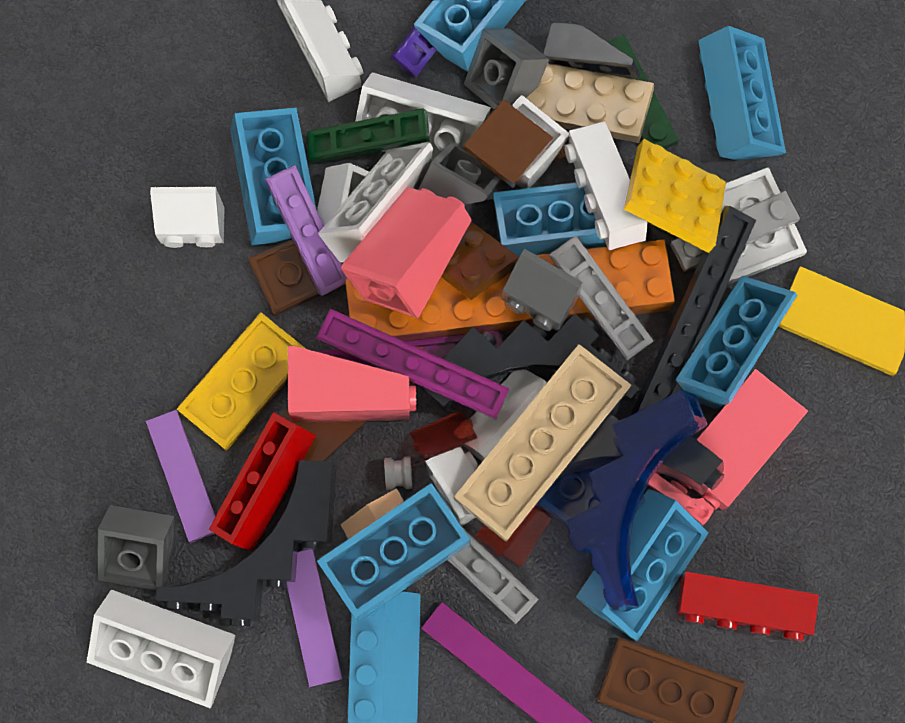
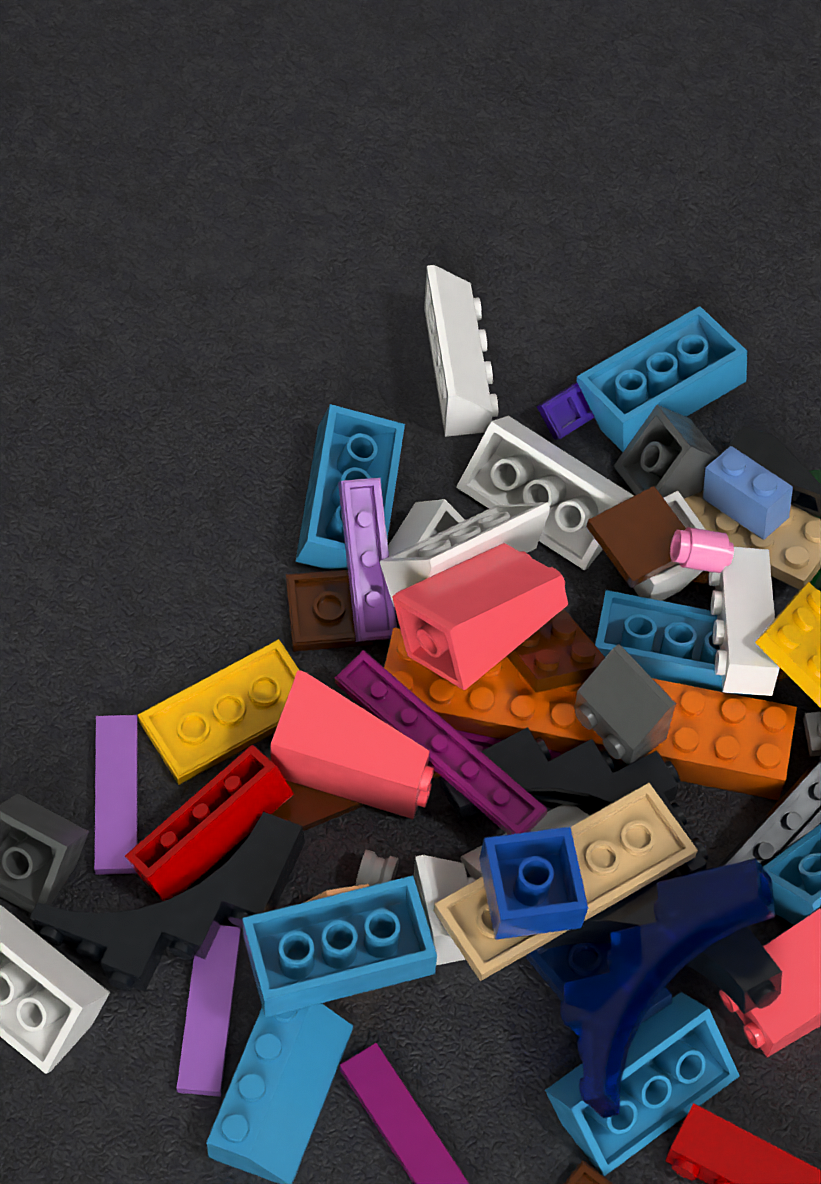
camera: 15 degrees right, 15 degrees down
(187, 216) = (233, 501): white slope -> none
(368, 136) = (477, 481): dark green plate -> none
(443, 435) = (447, 845): clear red piece -> none
(459, 176) = (573, 553): dark grey slope -> none
(493, 580) = (447, 1035): light grey plate -> none
(521, 541) = (497, 998): clear red piece -> none
(522, 460) = (533, 883): none -> blue brick
(557, 142) = (701, 549): none -> bright pink brick
(574, 79) = (747, 492): none -> medium blue brick
(602, 299) = (698, 748): light grey plate -> none
(697, 508) = (735, 1036): coral hinge -> none

